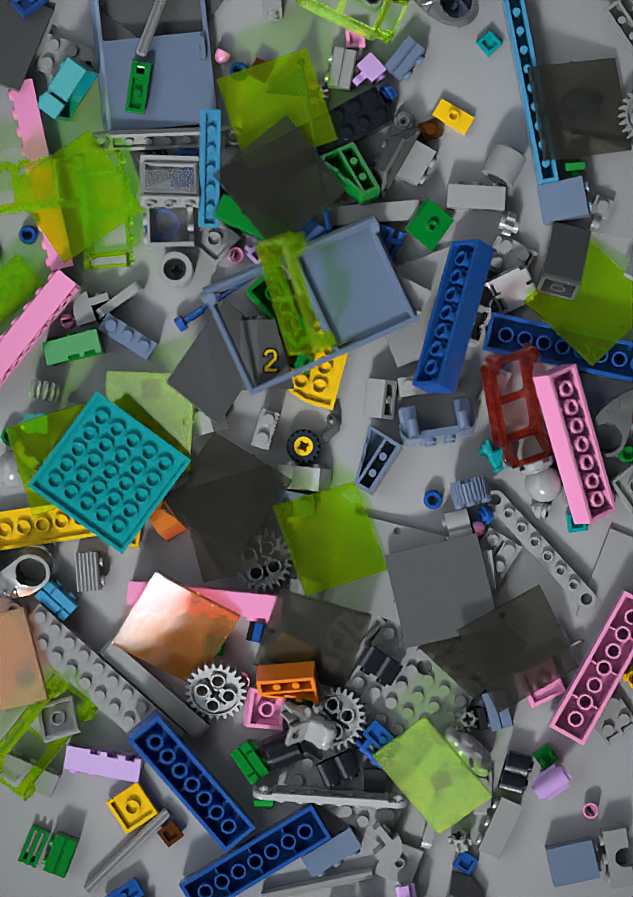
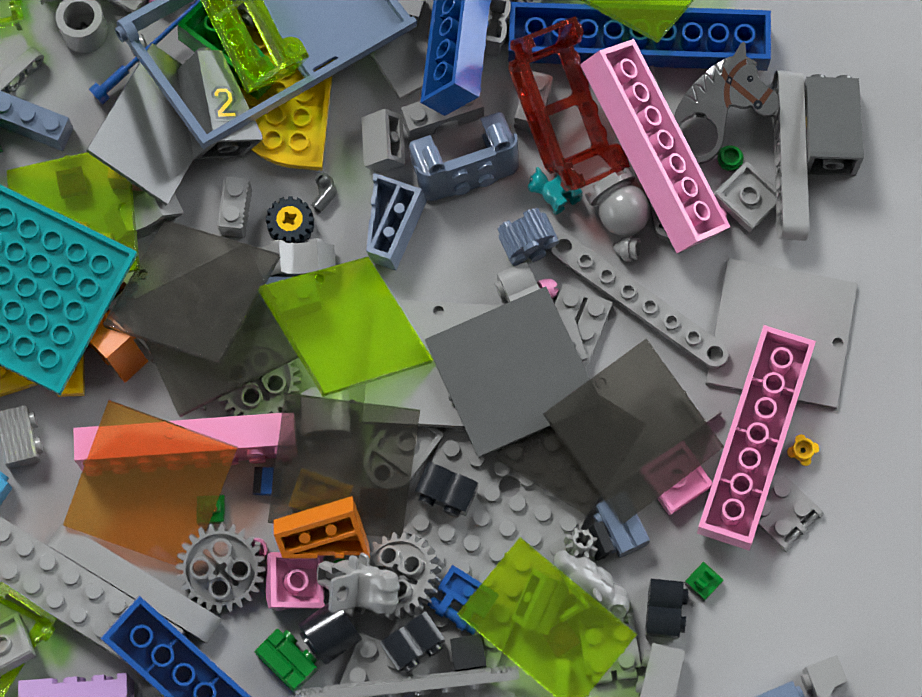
camera: 10 degrees left, 15 degrees down
(301, 361) = (274, 117): green tile -> none
(439, 499) = (479, 254): blue plate -> none
(485, 514) = (554, 267): blue plate -> none
(551, 782) = (718, 605): lavender piece -> none
(571, 527) = (680, 261): teal tile -> none
(594, 808) = (787, 640): bright pink hinge -> none

